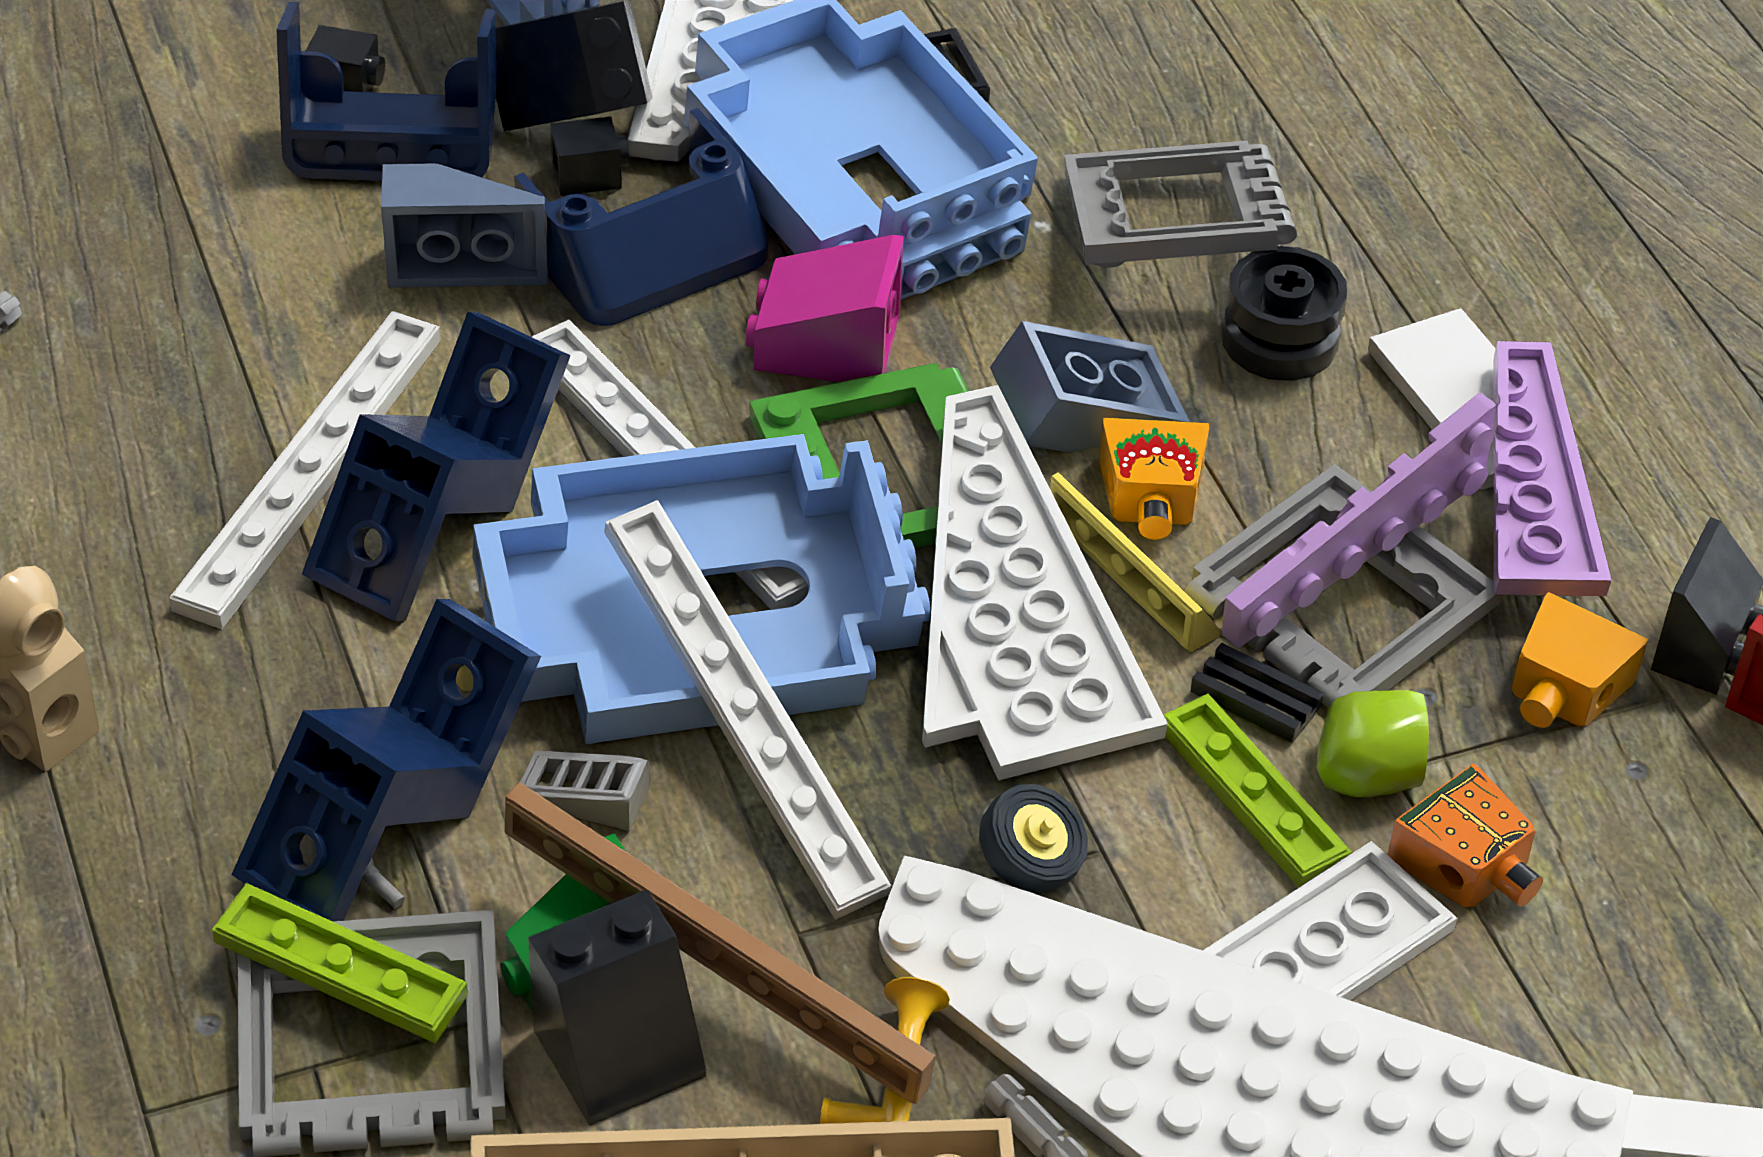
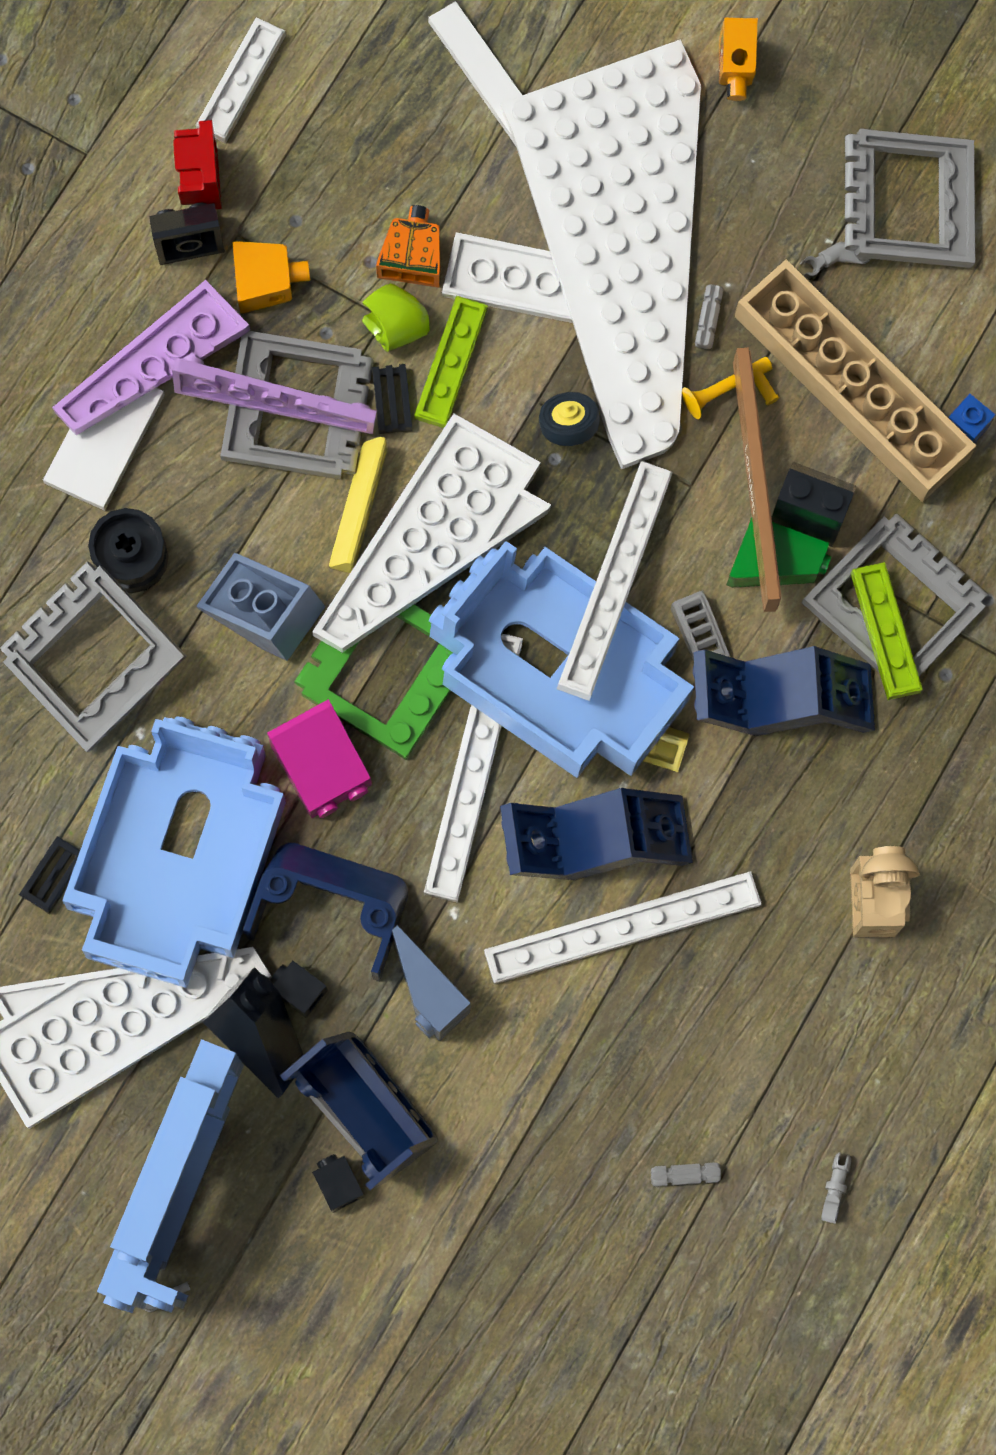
camera: 130 degrees left, 30 degrees up
(1152, 471) = (295, 533): light orange torso -> none

